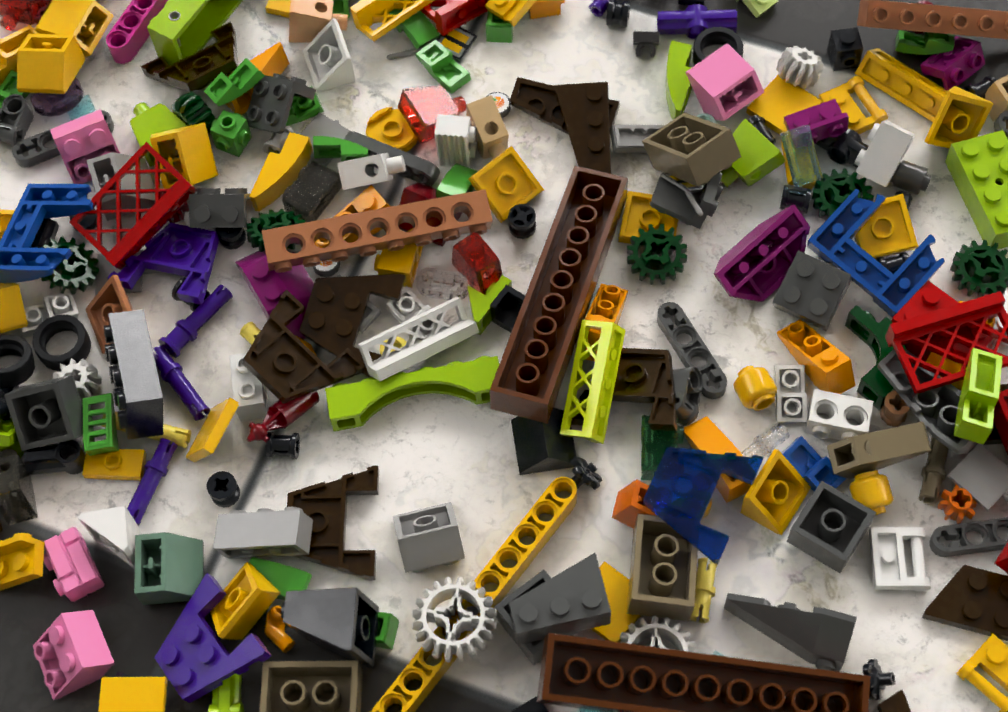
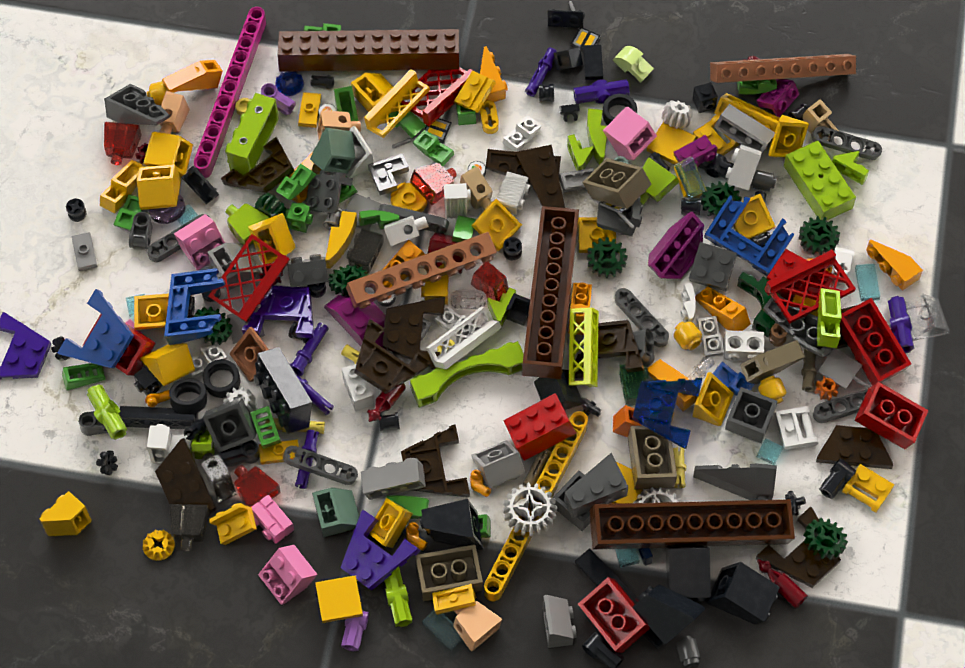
camera: 15 degrees left, 0 degrees up
(57, 508) = (254, 485): none -> clear red torso
(108, 70) = (200, 185): none -> black hinge
(114, 530) = (295, 495): white slope -> none
(161, 498) = (319, 468): none -> dark grey beam
(212, 430) = (342, 419): yellow tile -> none
(222, 495) = (357, 460): black wheel -> none
(299, 48) = (334, 151): none -> sand green slope
(366, 86) = (384, 170): none -> plate
(391, 561) = (477, 483): none -> light orange arm
(499, 491) = (539, 427): none -> red brick
(499, 534) = (532, 479): none -> dark tan pin
(534, 35) = (492, 116): none -> yellow beam
(540, 142) = (513, 192): none -> white brick
(573, 65) = (523, 133): none -> white slope
(648, 105) = (579, 156): none -> lime slope
(765, 343) = (688, 297): none -> white slope
(851, 589) = (769, 451): none -> clear light blue tile
(894, 99) = (744, 129): none -> light grey brick
(957, 646) = (838, 476): none -> black piece

